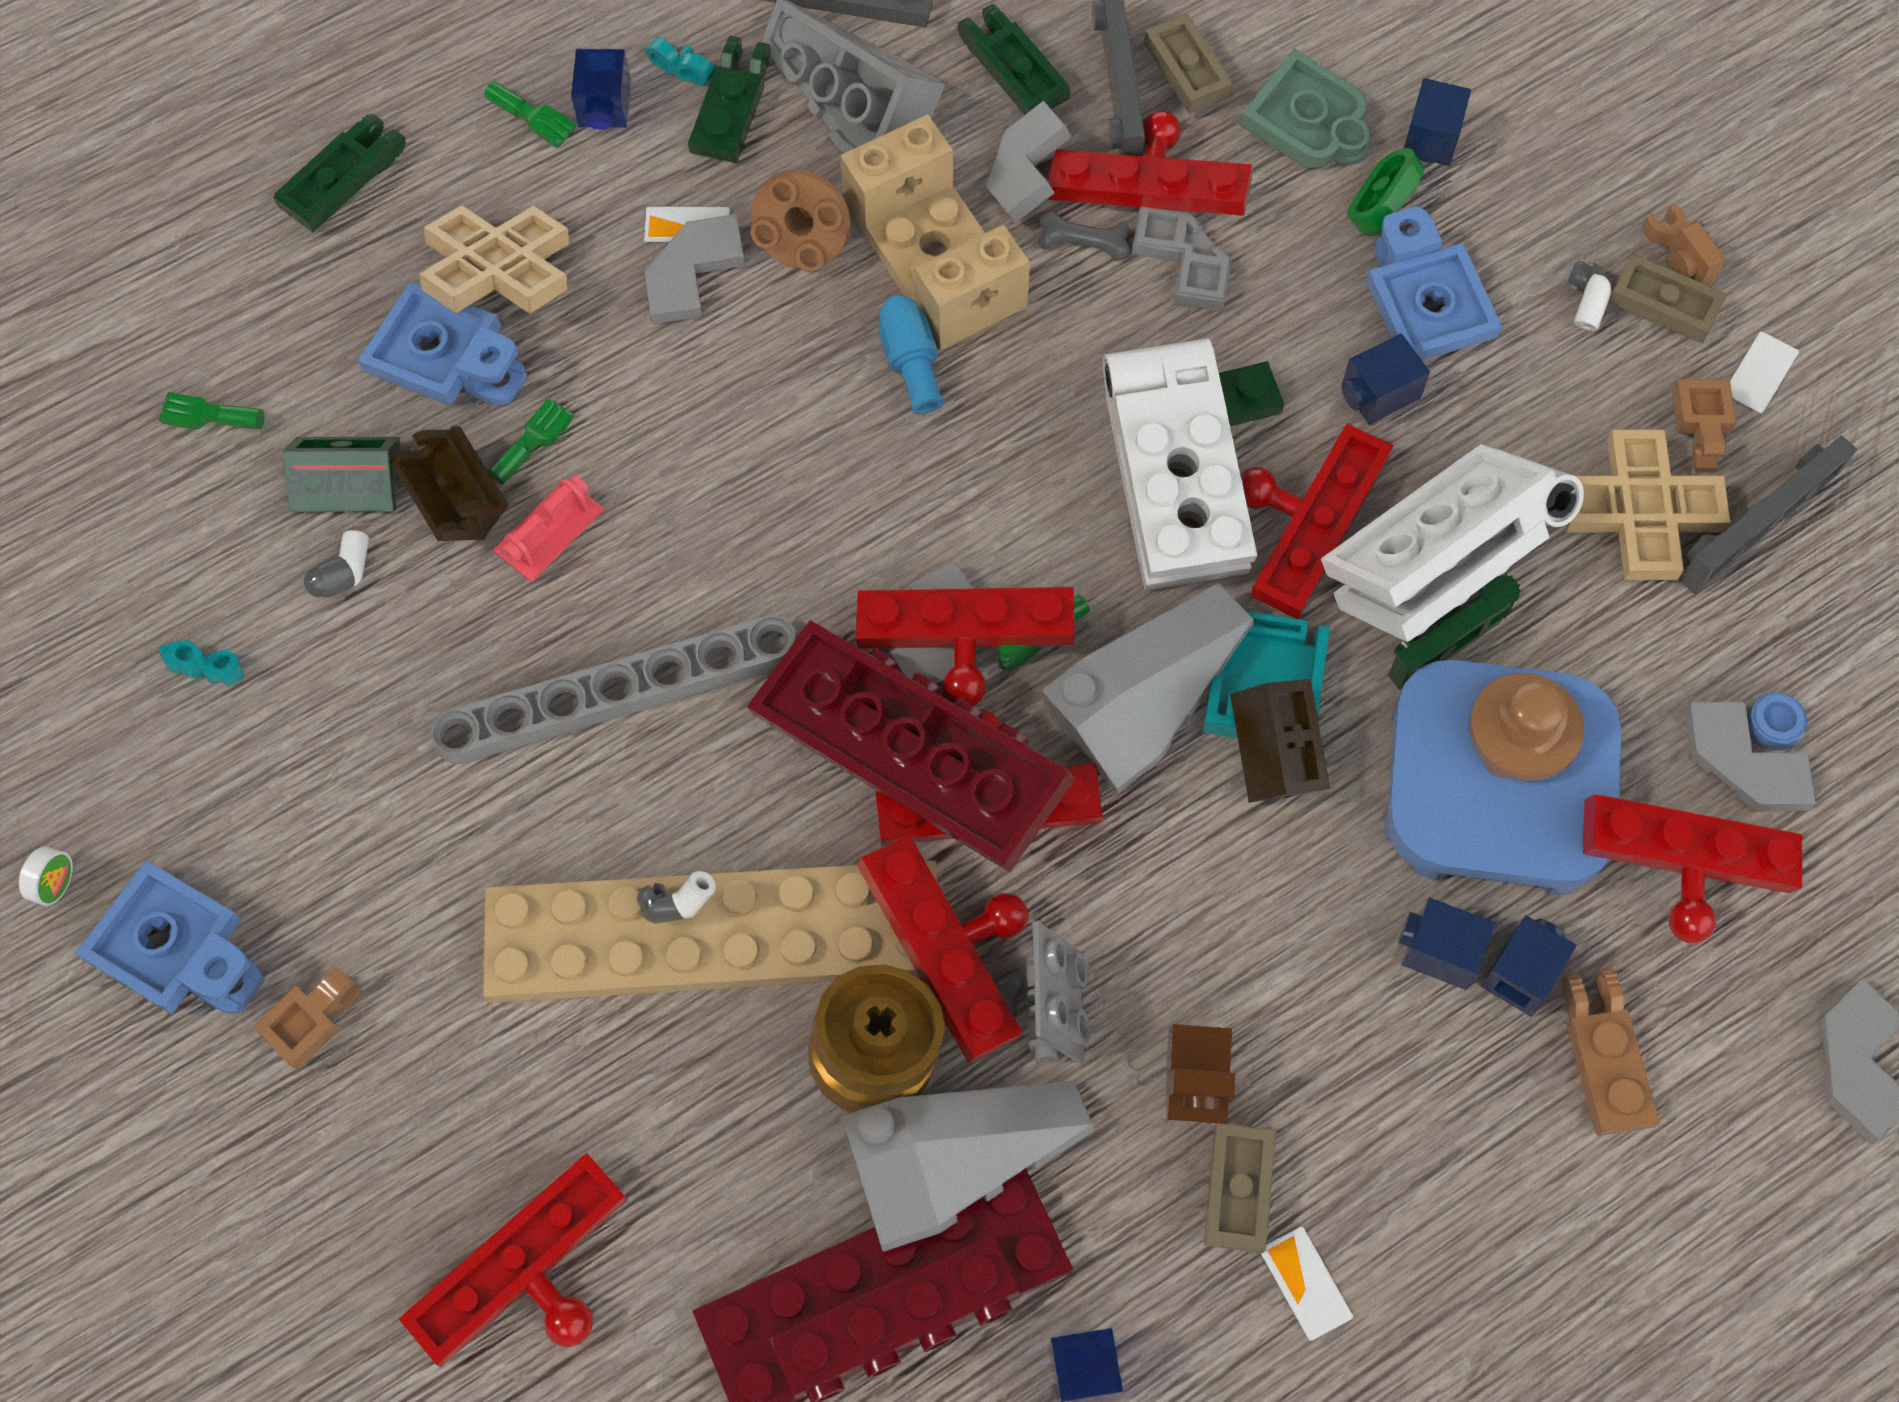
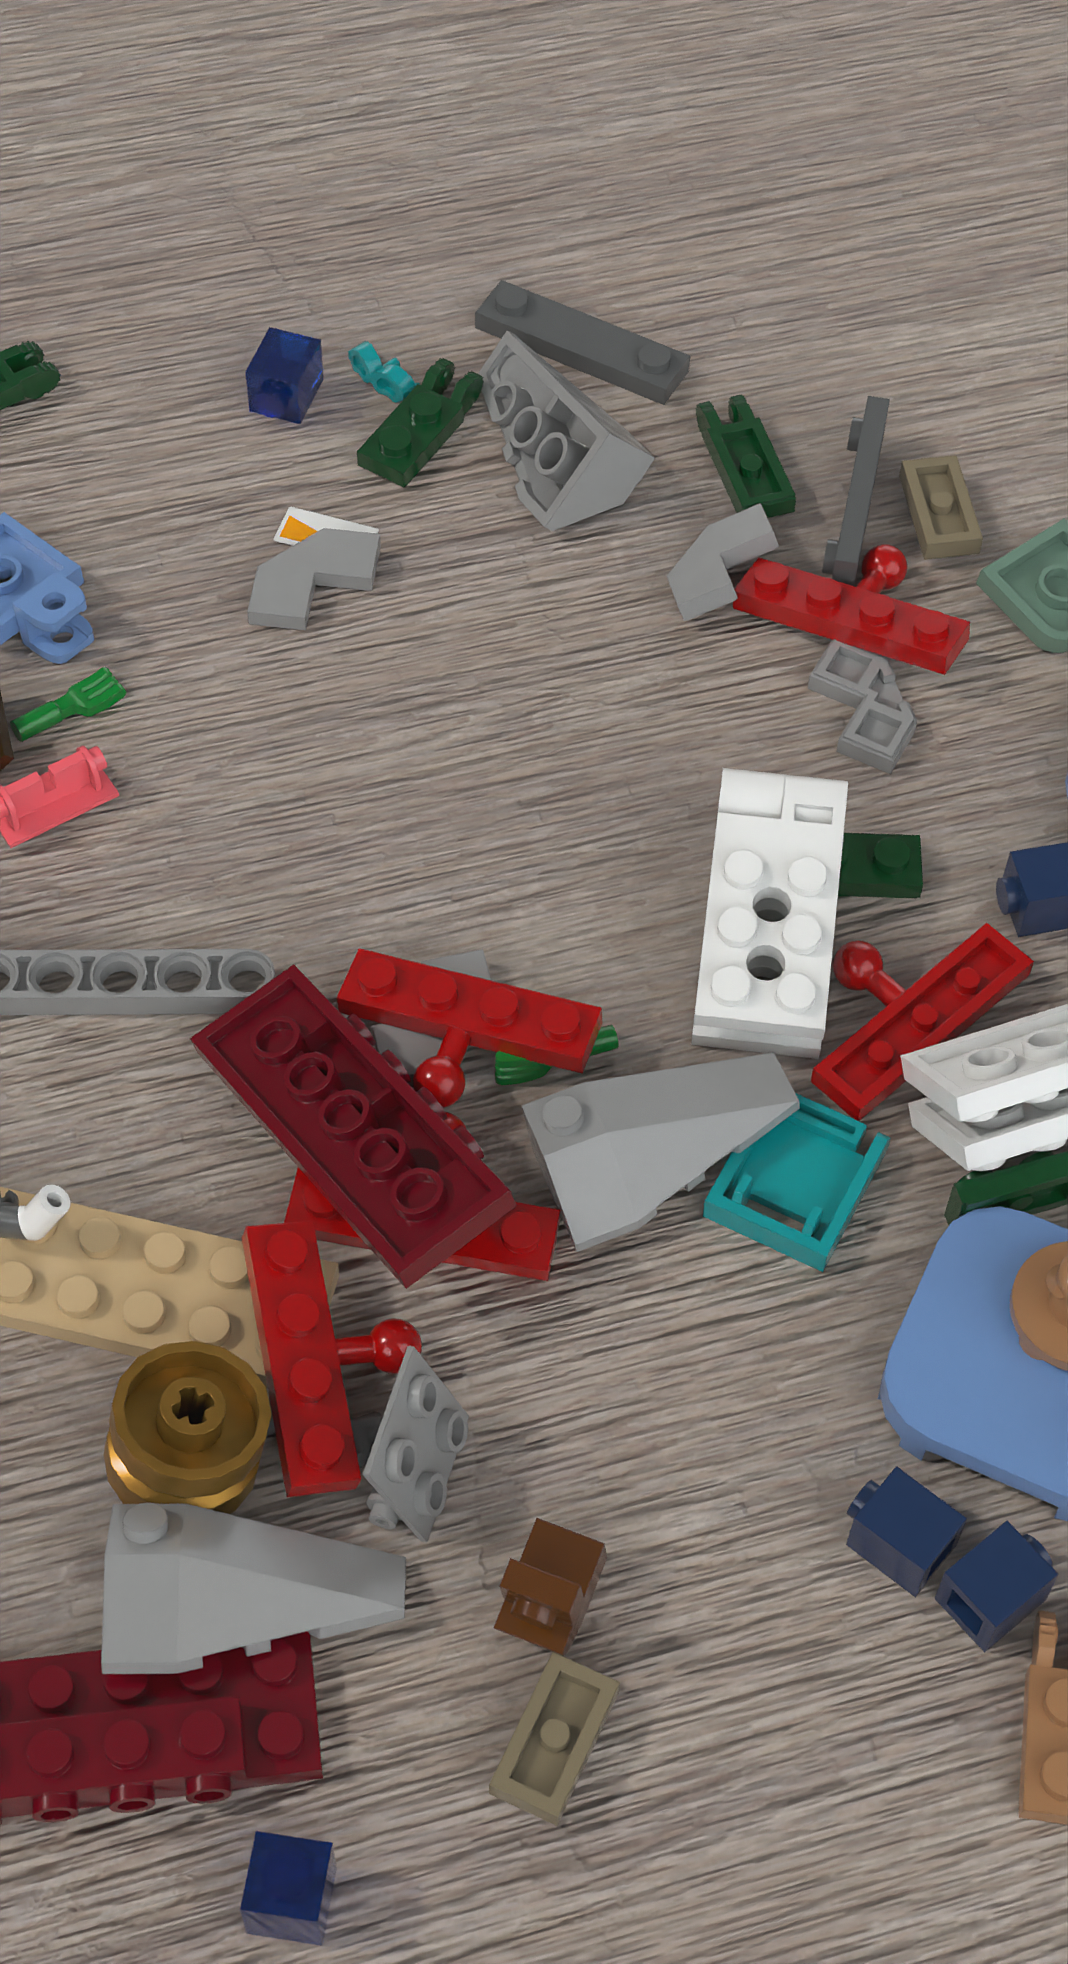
camera: 15 degrees right, 10 degrees down
(494, 259) = (112, 515): tan plate -> none
(542, 119) = (210, 393): green piece -> none
(800, 219) = (443, 553): medium nougat plate -> none
(906, 198) = (581, 608): tan plate -> none
(911, 351) = (517, 719): dark azure arm -> none
(1059, 231) = (785, 665): dark grey piece -> none
(1279, 740) = (782, 1241): dark brown hinge -> none
(1306, 1283) = (598, 1880): white sticker -> none

